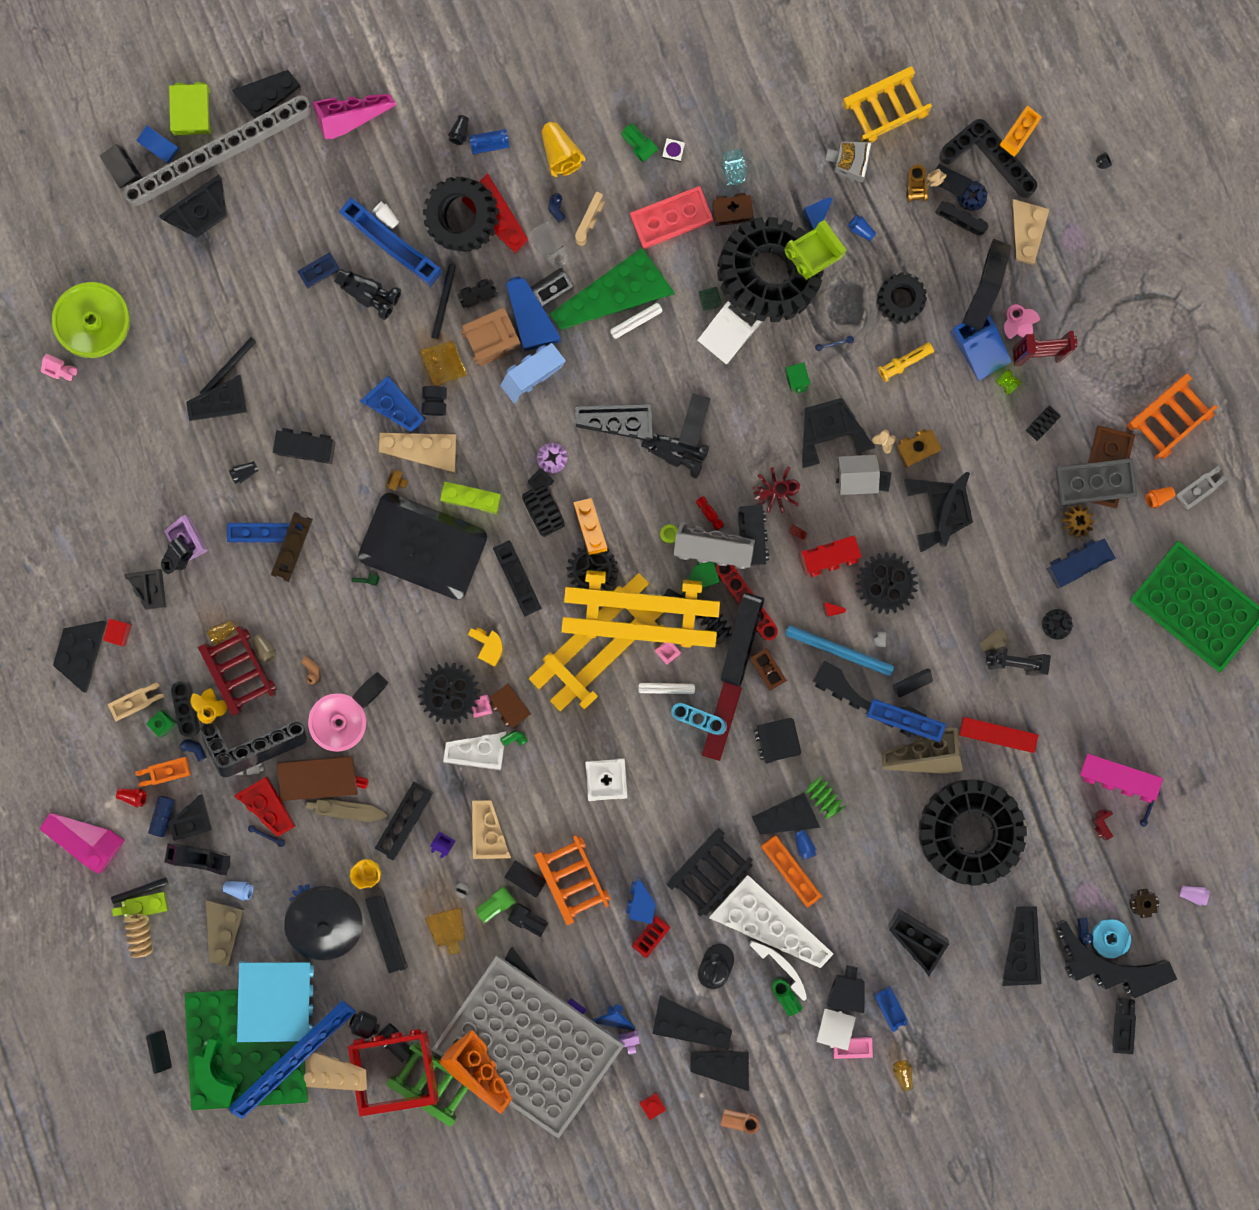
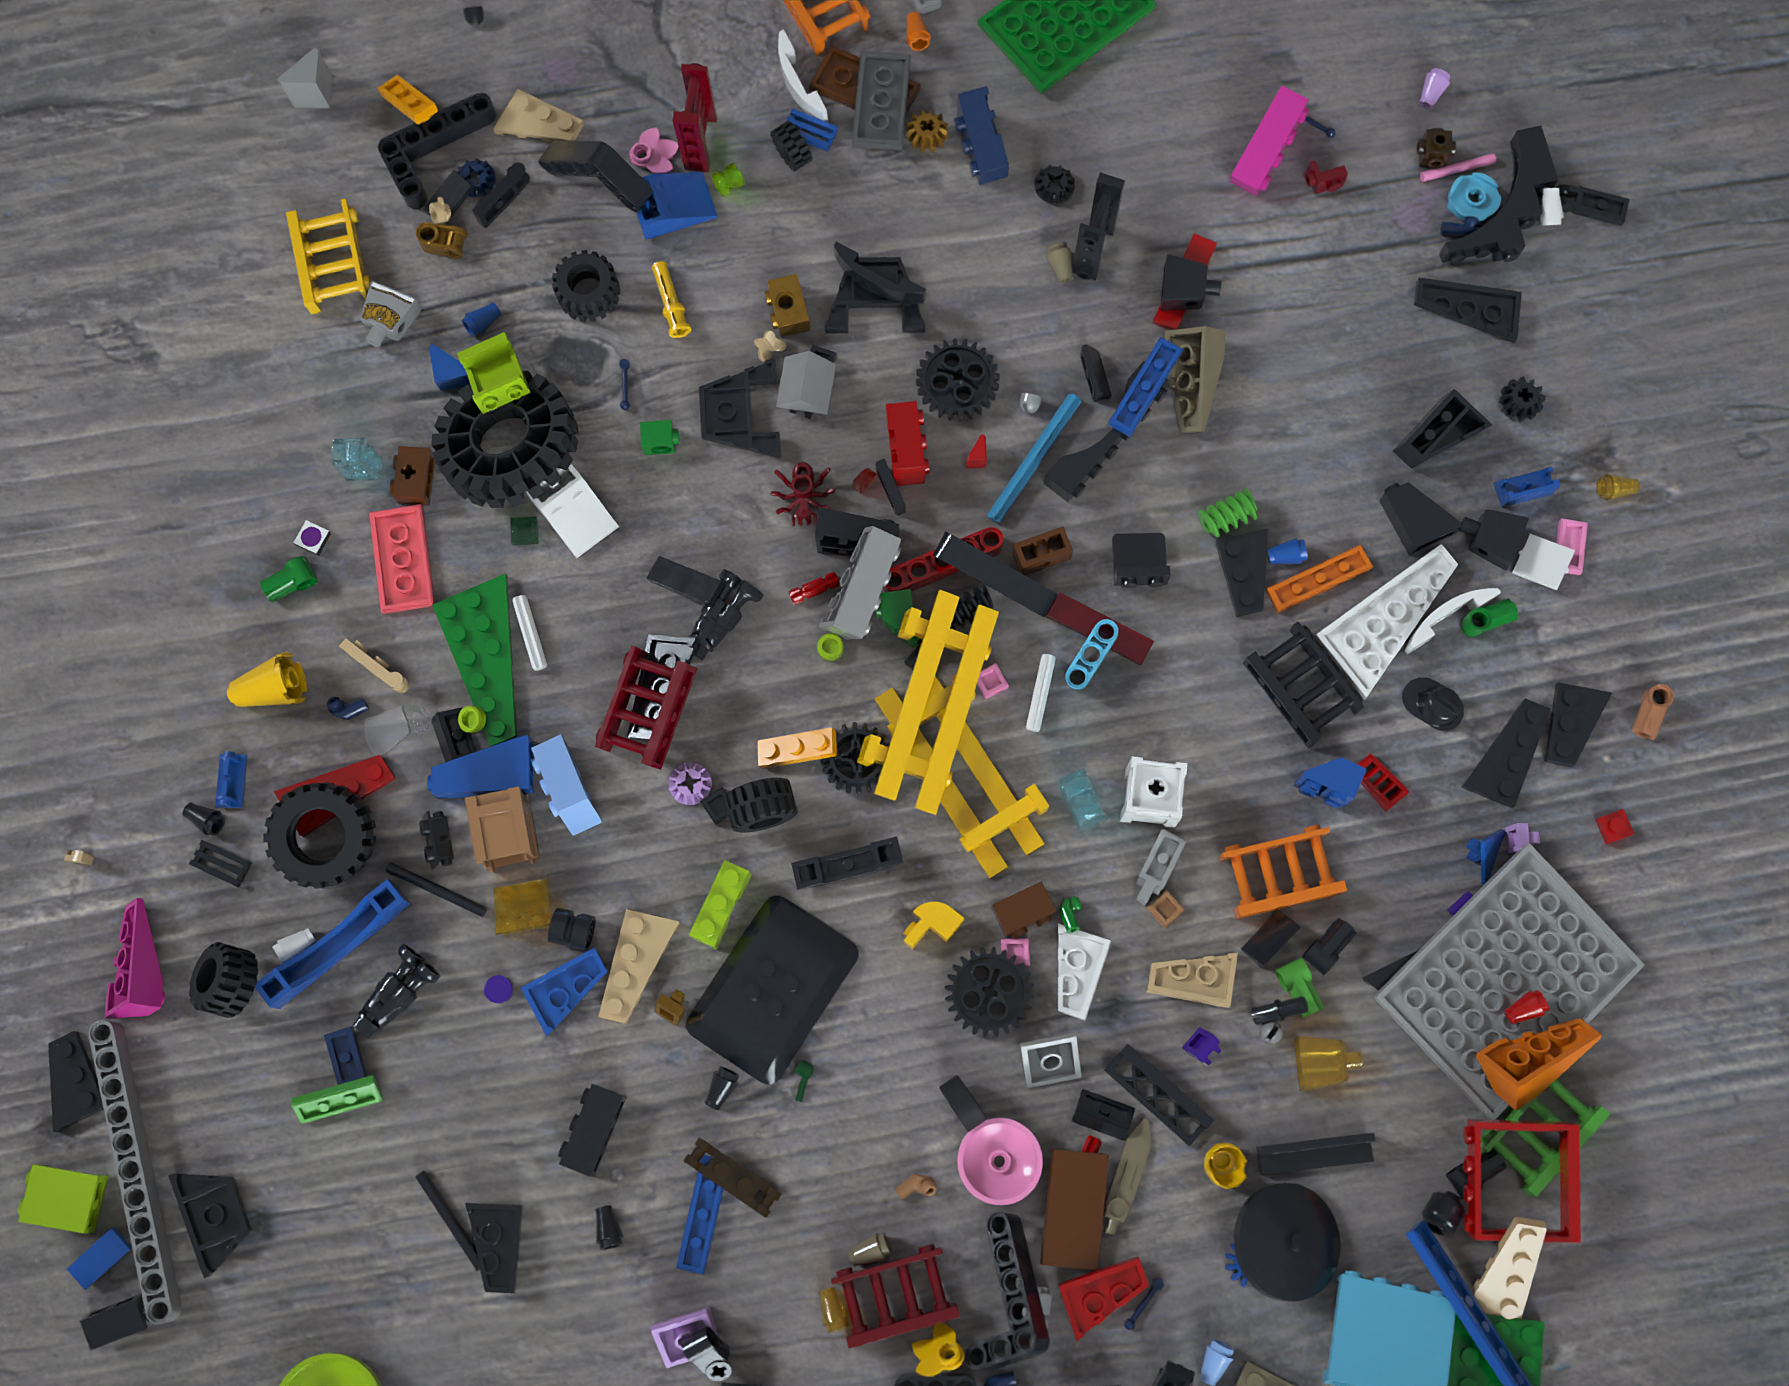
camera: 75 degrees left, 10 degrees down
(290, 272) = (337, 1099): none -> bright green tile
(350, 176) = (223, 980): none -> black tyre
(350, 526) = (721, 1086): none -> black cone
(384, 360) = (498, 989): none -> dark purple tile
(384, 786) = (1103, 1114): none -> black slope
(412, 743) = (1050, 1060): none -> light grey slope
(415, 52) = (79, 857): none -> tan tile
(434, 134) = (199, 854): none -> black tile
(476, 892) = (1280, 1010): none -> black axle
(510, 1060) = (1527, 1007): none -> red cone
(531, 803) = (1165, 909): none -> medium nougat tile
(560, 793) = (1159, 864): none -> light grey hinge
(565, 296) = (472, 719): none -> lime tile
(593, 731) = (1081, 800): none -> clear light blue brick
(601, 432) = (671, 704): none -> dark red fence
(794, 551) = (890, 487): none -> black tile
(850, 933) = (1416, 517): none -> black slope
(938, 837) = (1301, 377): black tyre -> none
(951, 992) = (1521, 399): none -> black gear
(993, 735) = (1186, 284): none -> black torso
(1019, 55) = (308, 82): none -> light grey slope
(1063, 432) = (831, 130): none -> blue tile
(1113, 996) = (1551, 207): none -> white cone
(1118, 403) = (809, 103): none -> white slope
(1134, 923) = (1458, 167): none -> bright pink bar

